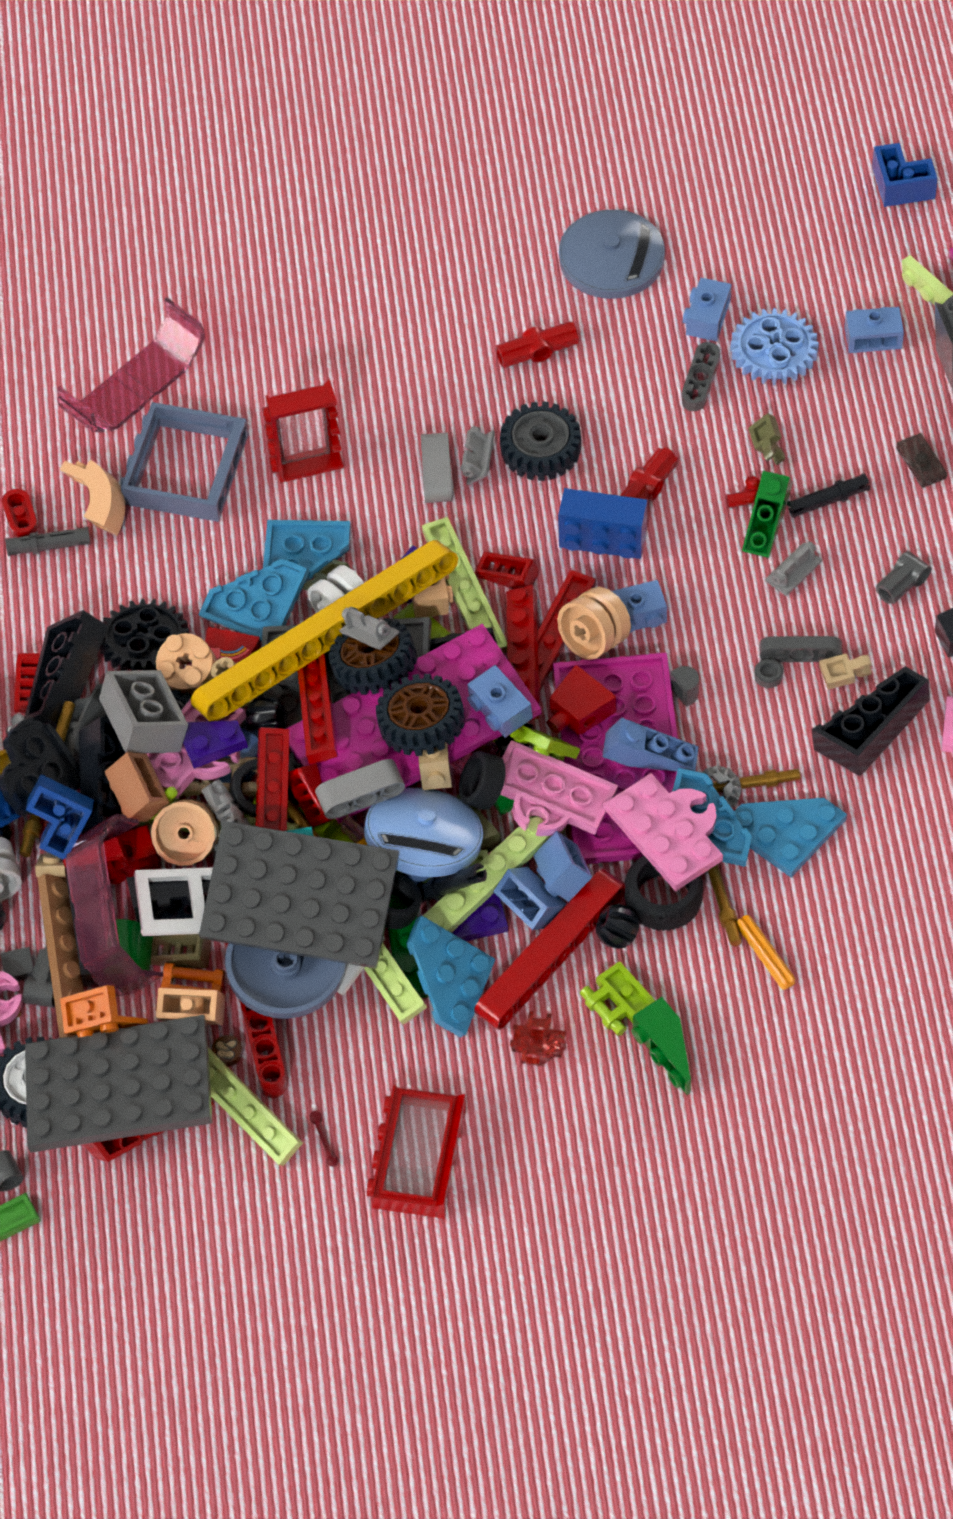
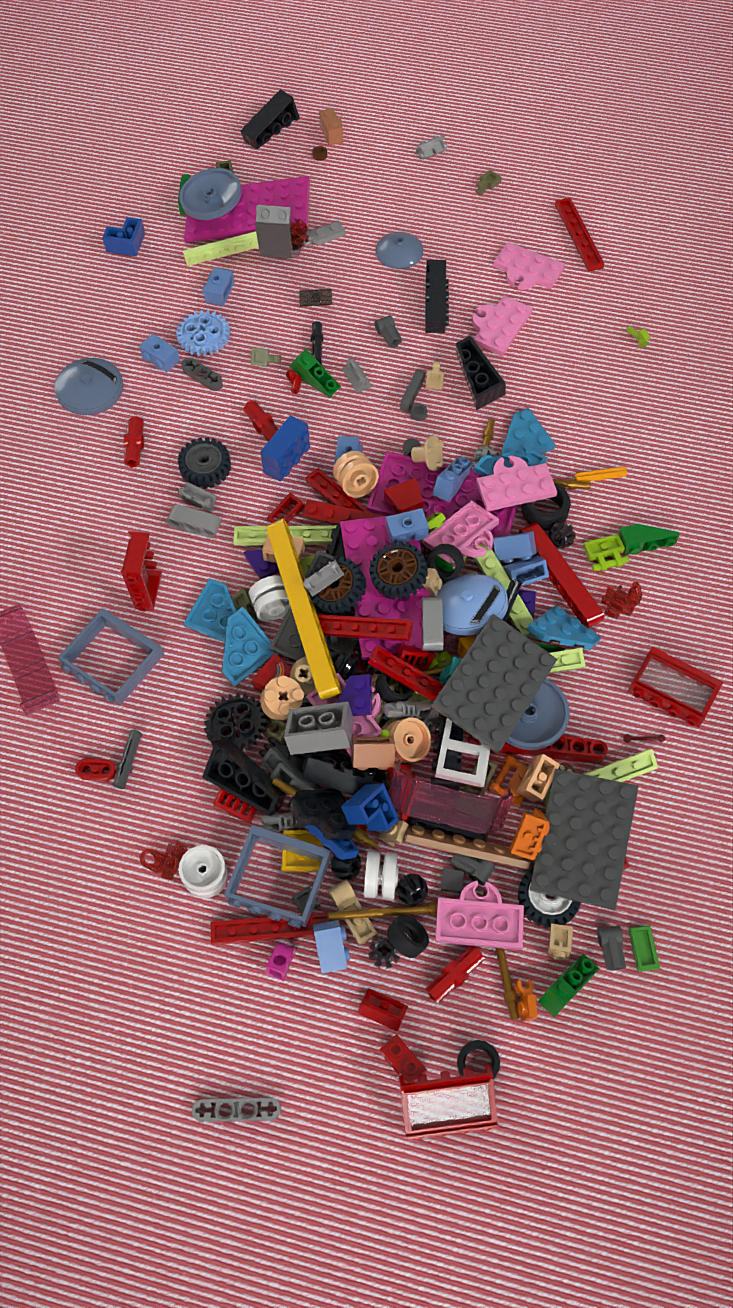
camera: 70 degrees left, 5 degrees up
(106, 502) = (118, 709): light nougat arch -> none
(673, 703) = (429, 453): none -> tan piece

